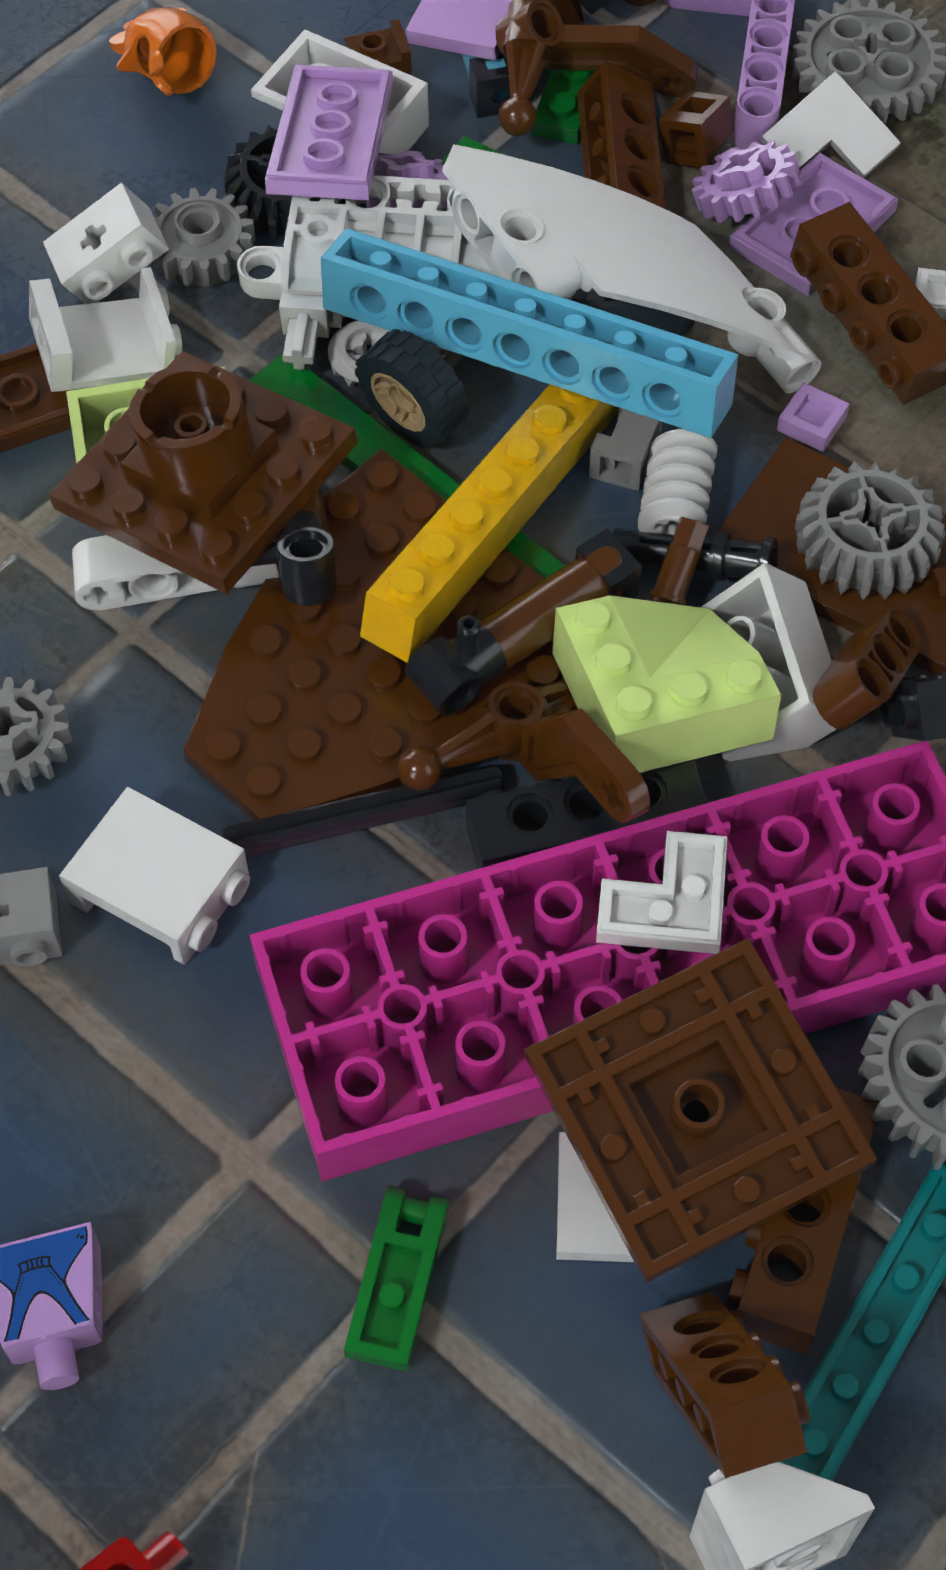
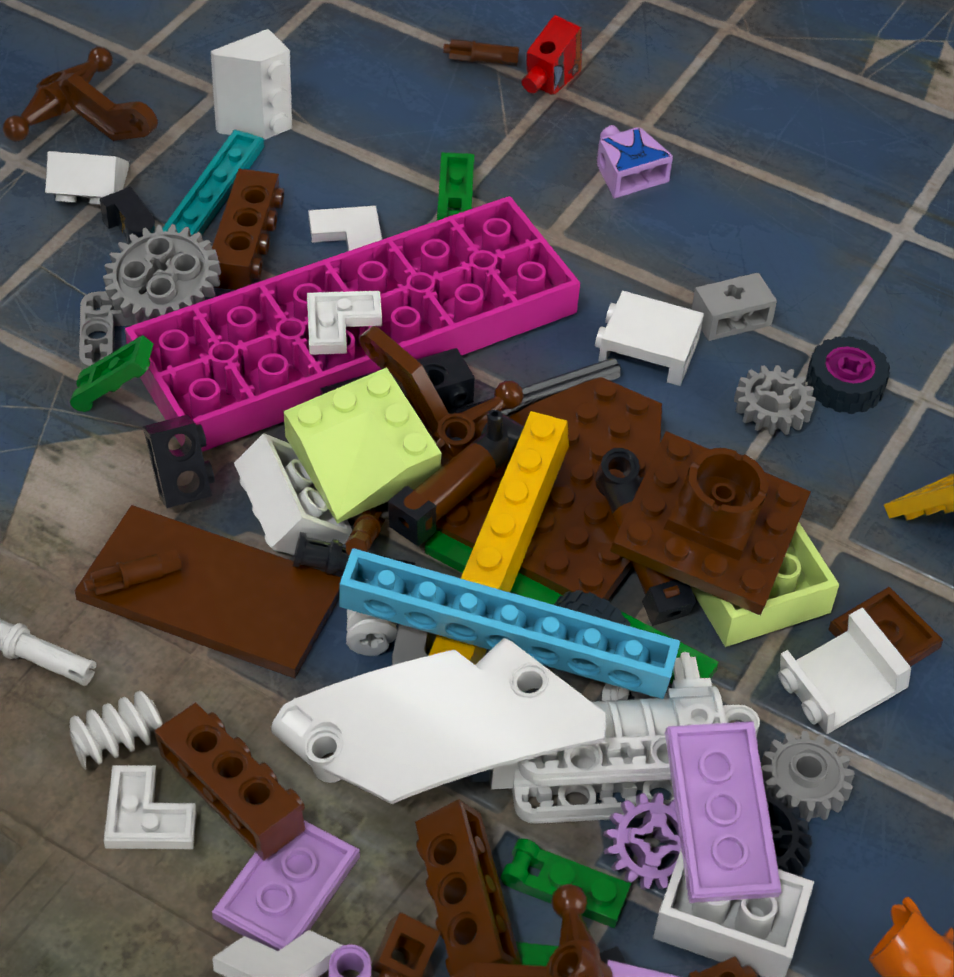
camera: 165 degrees right, 10 degrees down
(105, 245) = (872, 734): white brick -> none
(710, 1047) = (310, 221): reddish brown piece -> none
(725, 1384) = (291, 100): reddish brown brick -> none
(746, 181) = (369, 903): lavender gear -> none
(813, 417) = (273, 687): lavender plate -> none
(867, 669) = (224, 477): reddish brown beam -> none
(875, 516) = (210, 597): light grey gear -> none

